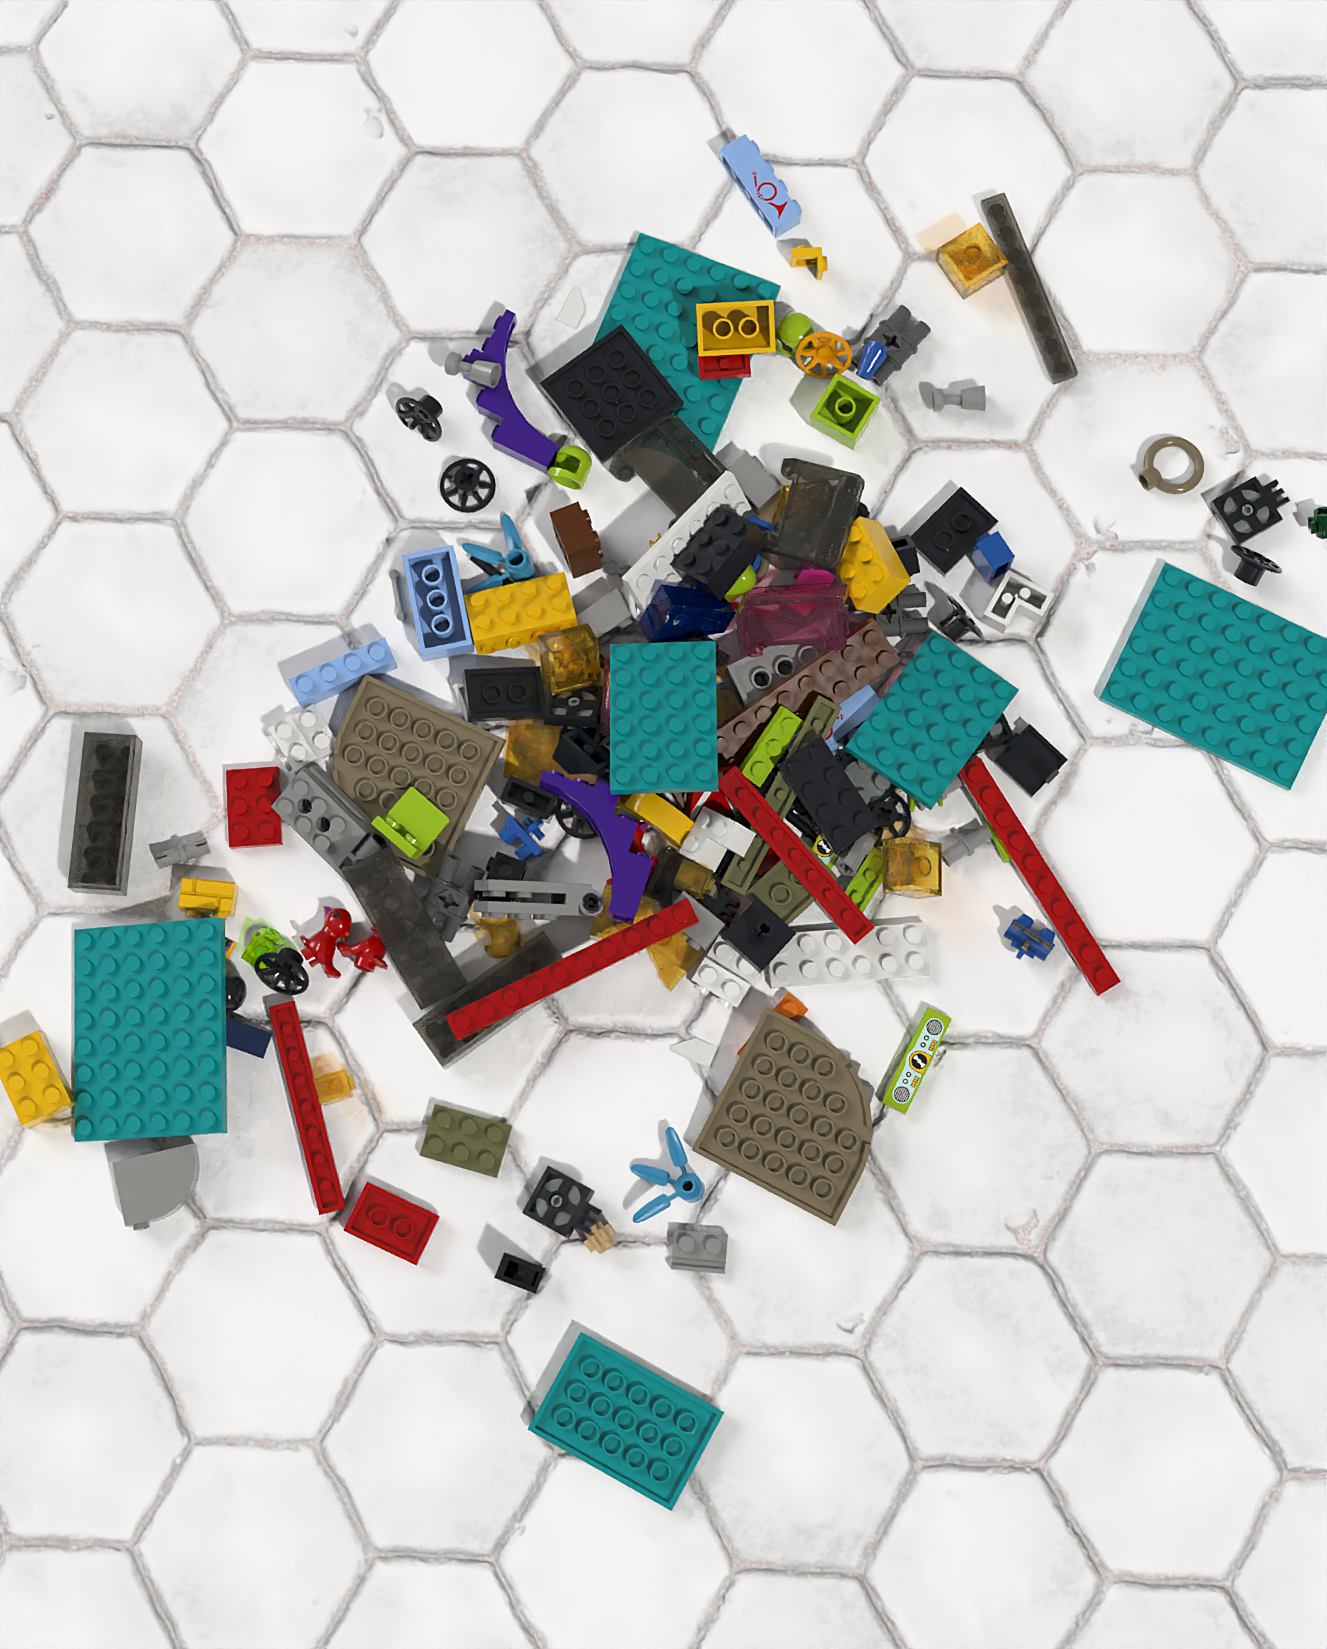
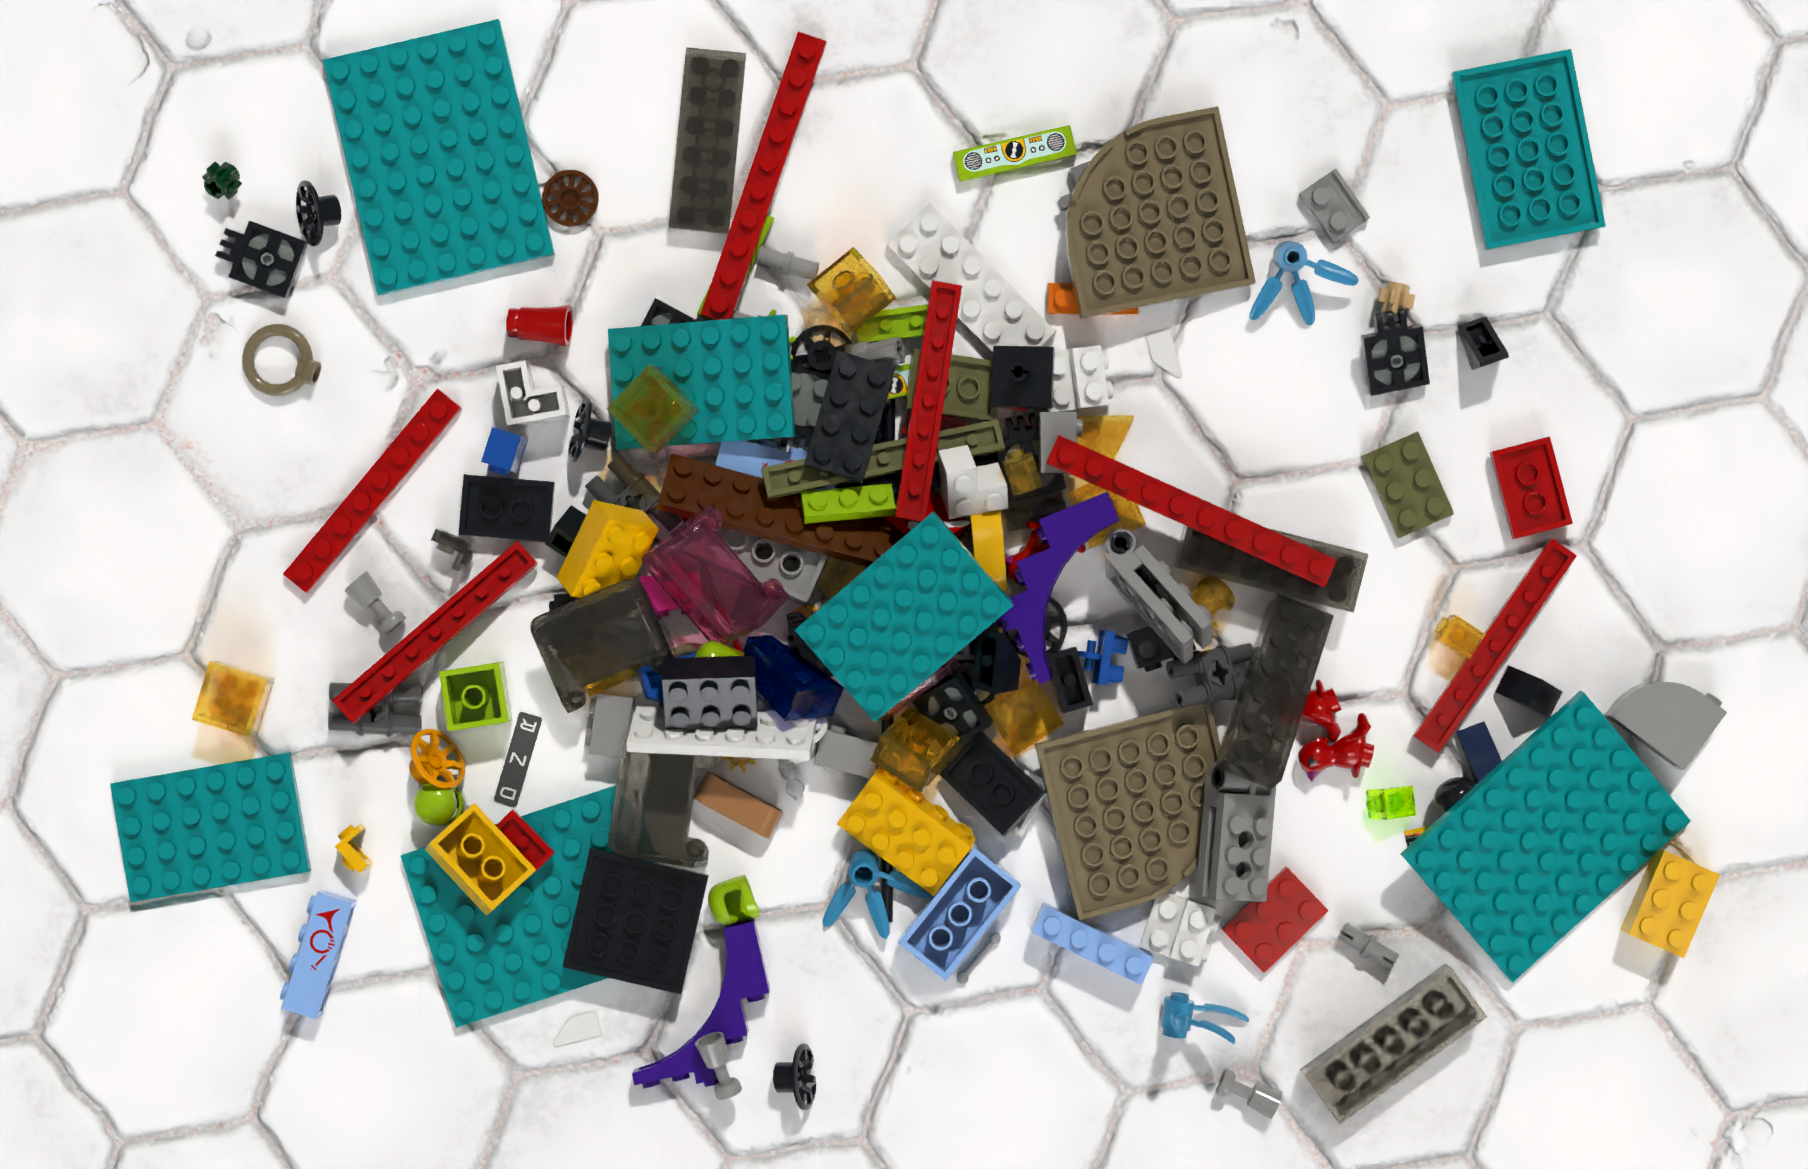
camera: 135 degrees left, 10 degrees up
(146, 699) = (1260, 1097): none -> light grey piece
(208, 897) = (1388, 889): yellow brick -> none
(243, 687) = (1178, 1017): none -> dark azure plant
(255, 1105) = (1528, 691): none -> black slope
(285, 968) = (1393, 769): black wheel -> none
(412, 823) = (1179, 762): lime bracket -> none
(467, 484) = (825, 982): black wheel -> none
(577, 539) = (803, 830): reddish brown brick -> none
(631, 521) = (738, 804): none -> medium nougat beam
(780, 409) = (518, 759): none -> dark grey sticker
(871, 359) = (408, 710): blue cone -> none
(899, 186) = (210, 827): none -> teal plate
(908, 419) = (435, 632): none -> red plate
(940, 668) = (653, 409): none -> clear yellow brick
(959, 477) = (449, 543): none -> clear smoke bracket
(1027, 940) = (830, 137): blue hips -> none
(1029, 288) = (214, 627): clear smoke plate -> none
(1030, 760) = (663, 268): black piece -> none
(1036, 457) = (372, 491): none -> red plate
(1057, 650) = (541, 324): none -> red plant
(1094, 860) = (707, 140): none -> clear smoke plate
(1128, 739) = (570, 198): none -> reddish brown wheel

